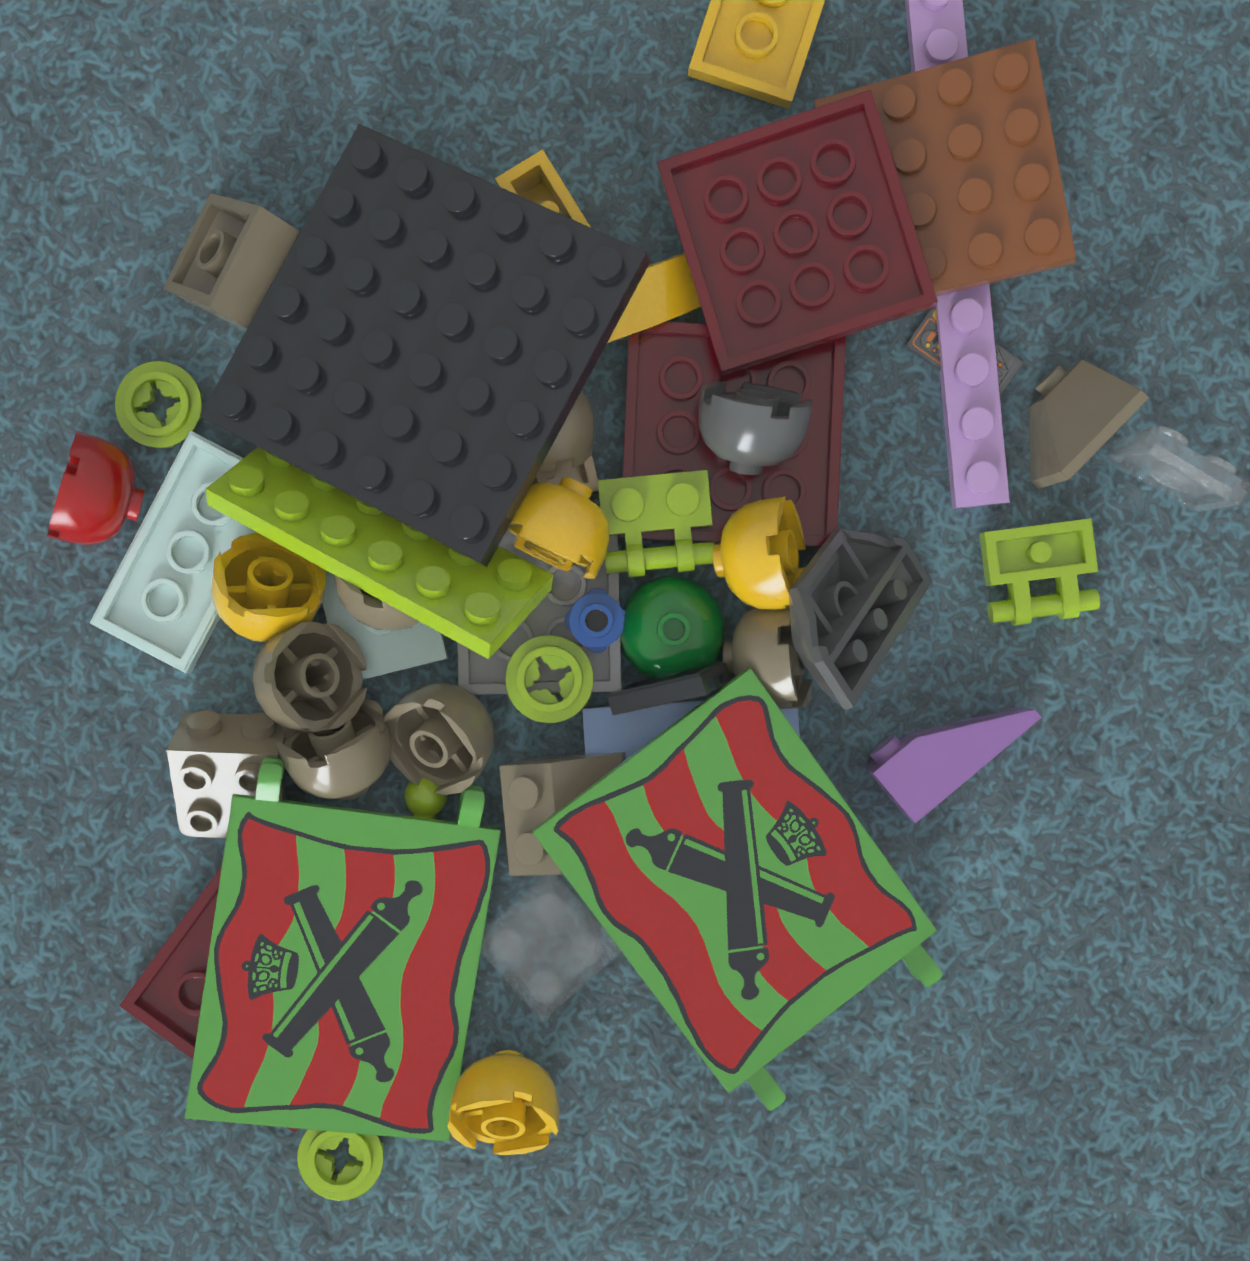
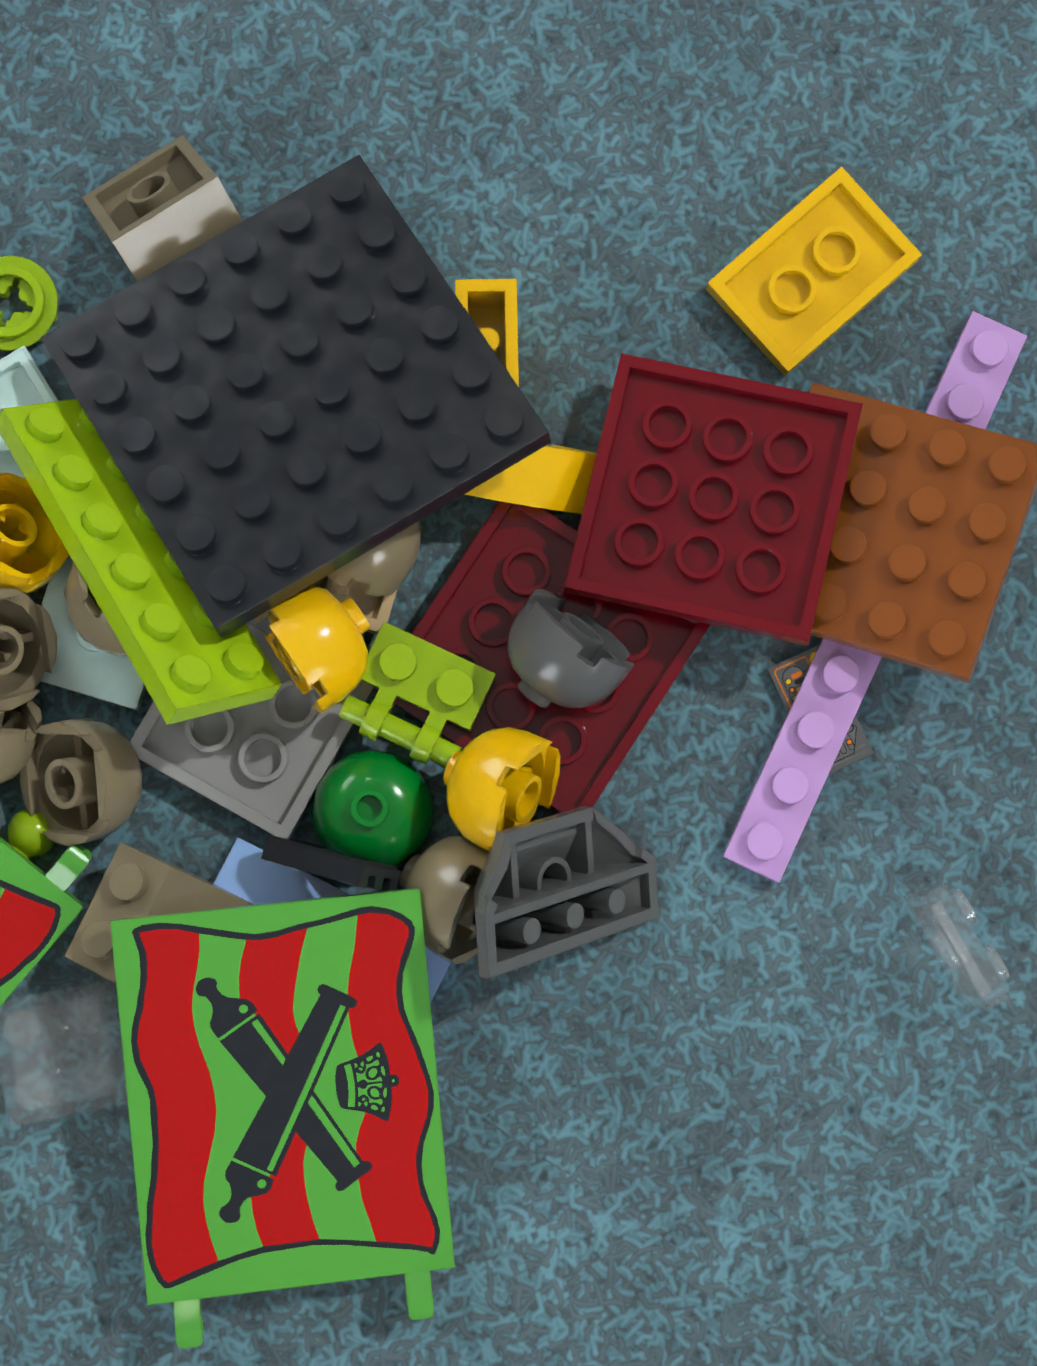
camera: 30 degrees right, 5 degrees down
(542, 704) = (202, 764): lime gear -> none
(576, 620) = (280, 748): blue brick -> none
(936, 761) = (553, 1097): medium lavender slope -> none
(1039, 553) = (779, 951): lime plate -> none
(1075, 419) = (887, 833): dark tan slope -> none

